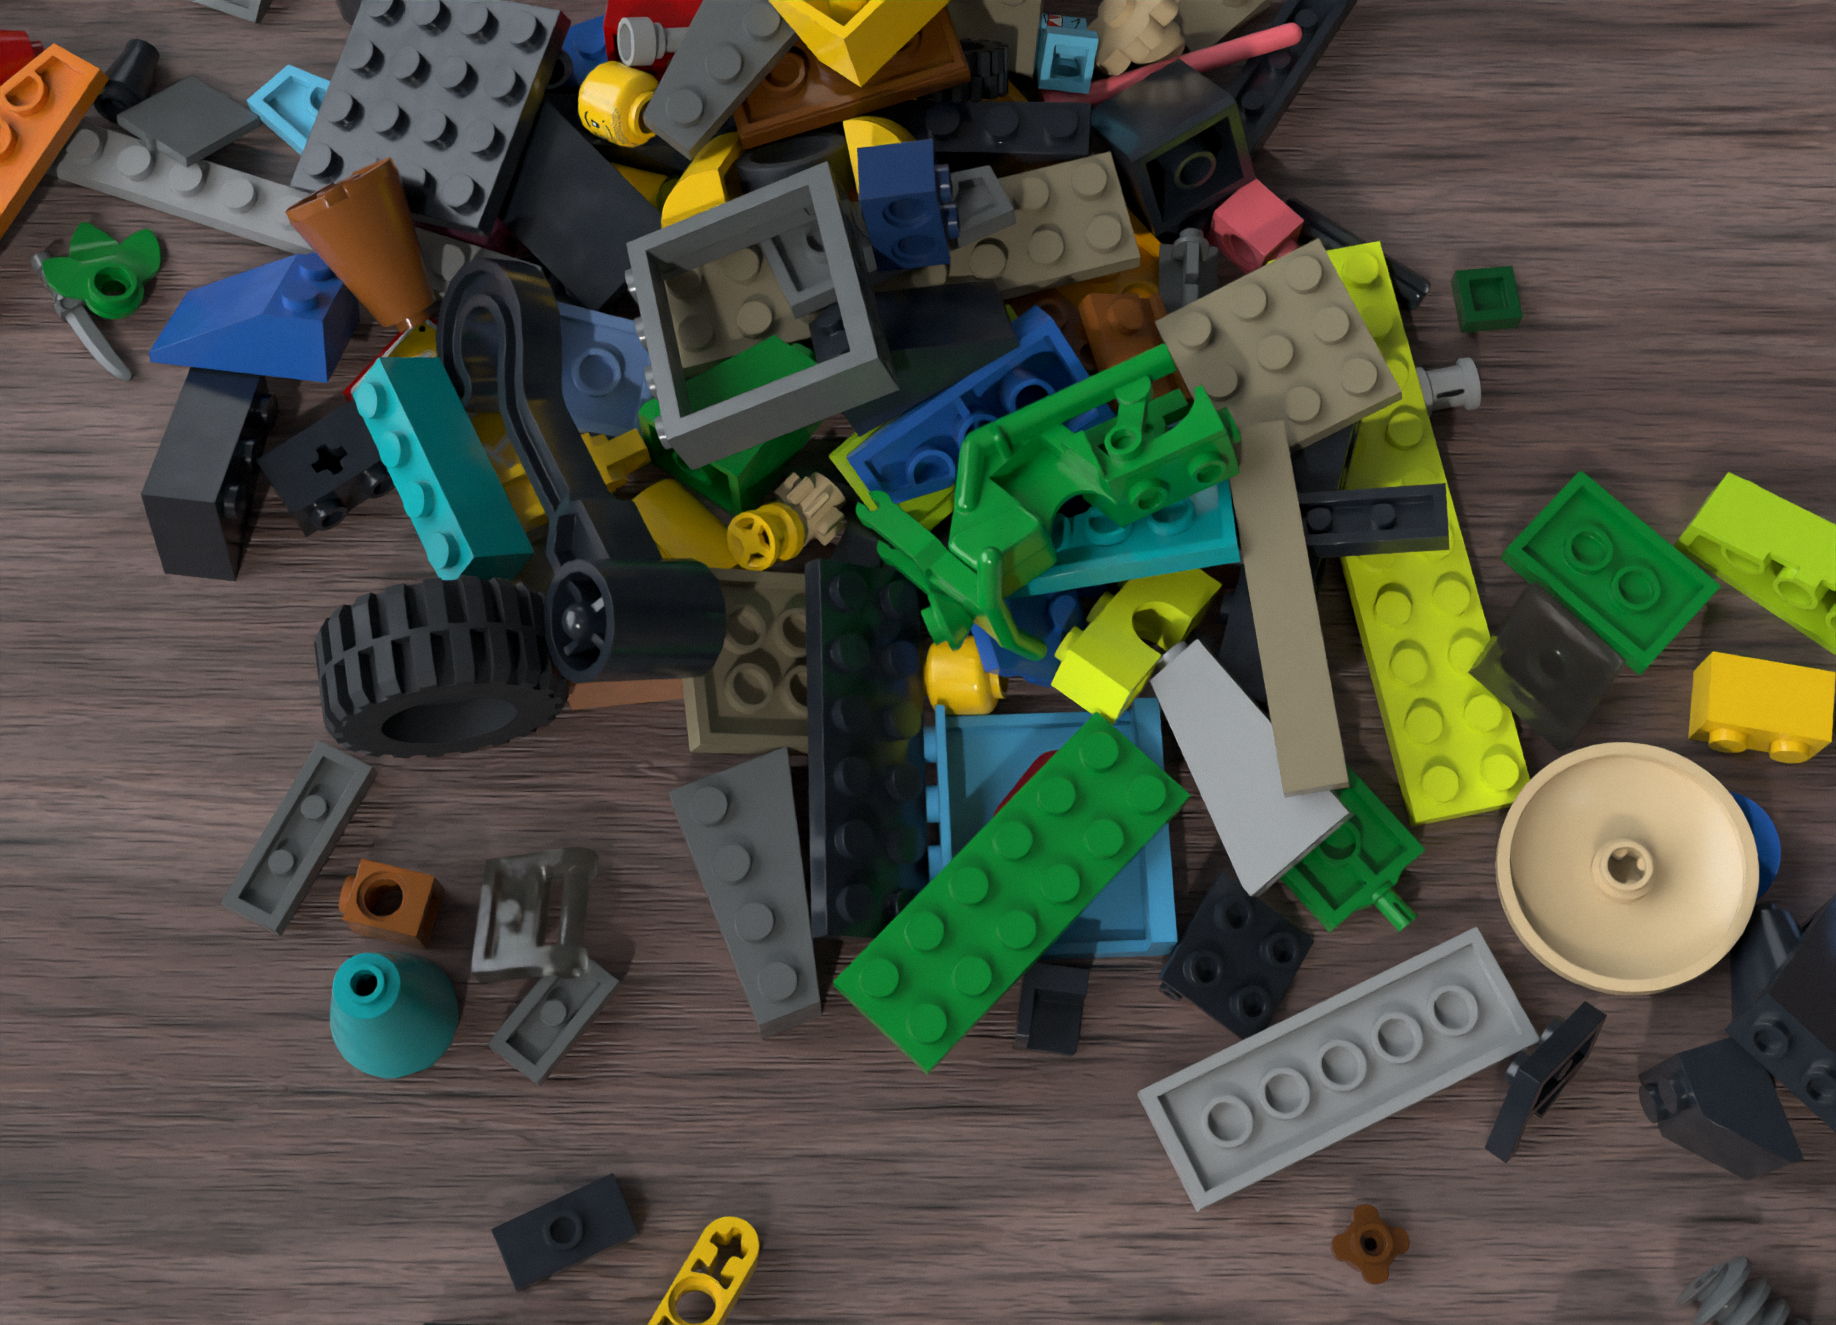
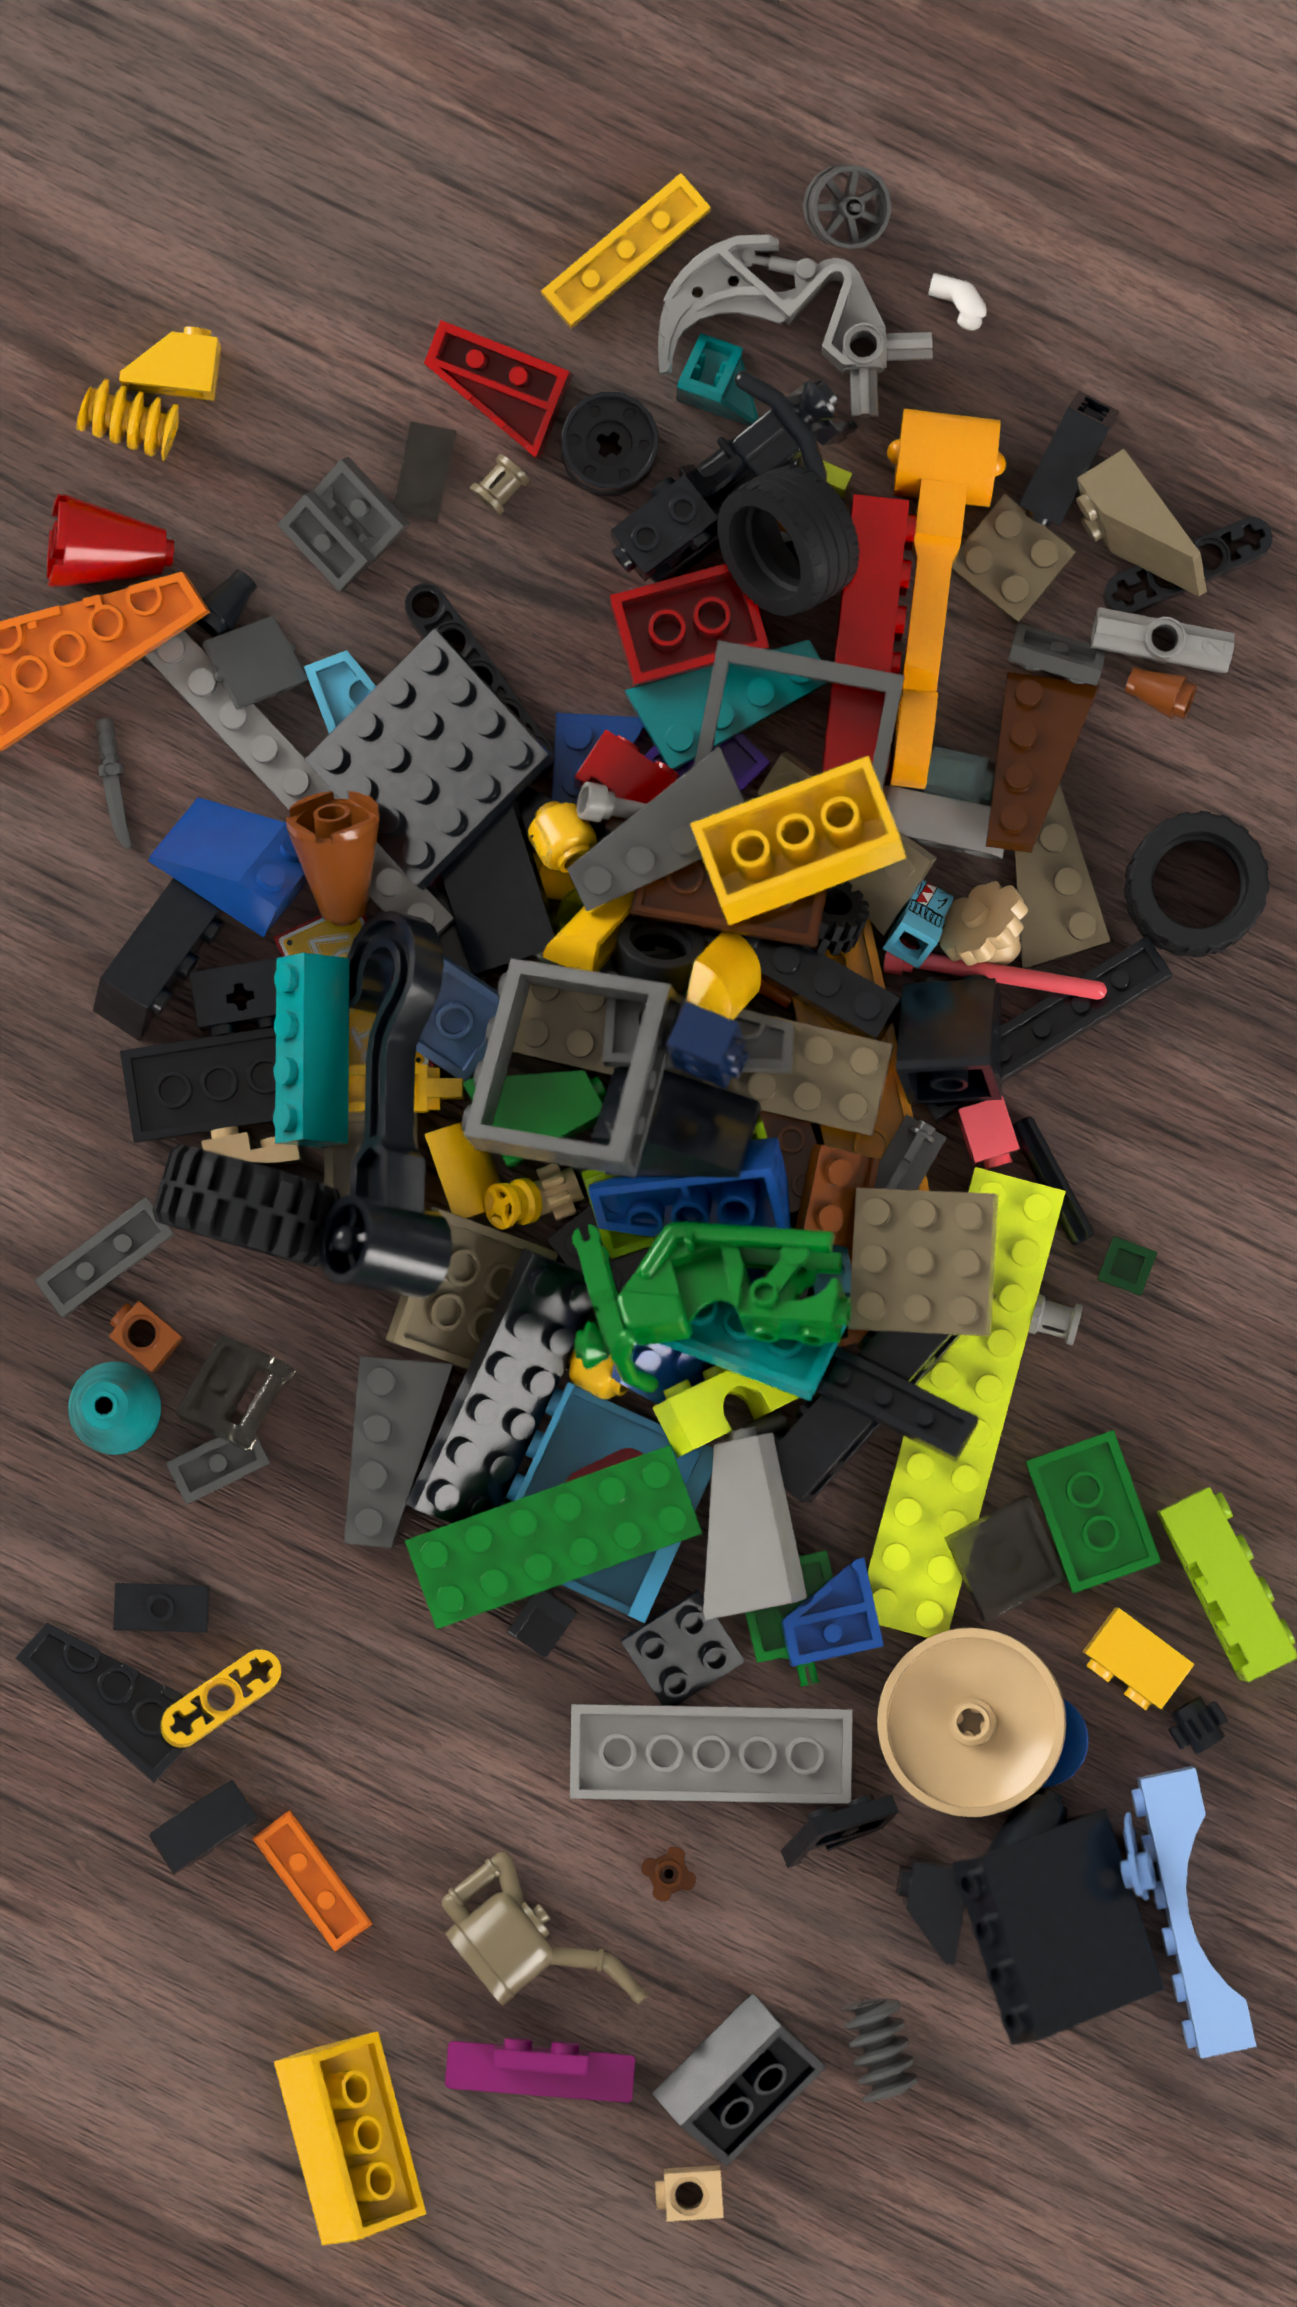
camera: 30 degrees right, 15 degrees up
(103, 265) = (148, 748): green plate -> none
(294, 590) = (200, 1084): none -> black plate
(1286, 613) = (822, 1447): dark tan tile -> none
(1399, 824) = (834, 1619): none -> blue wing

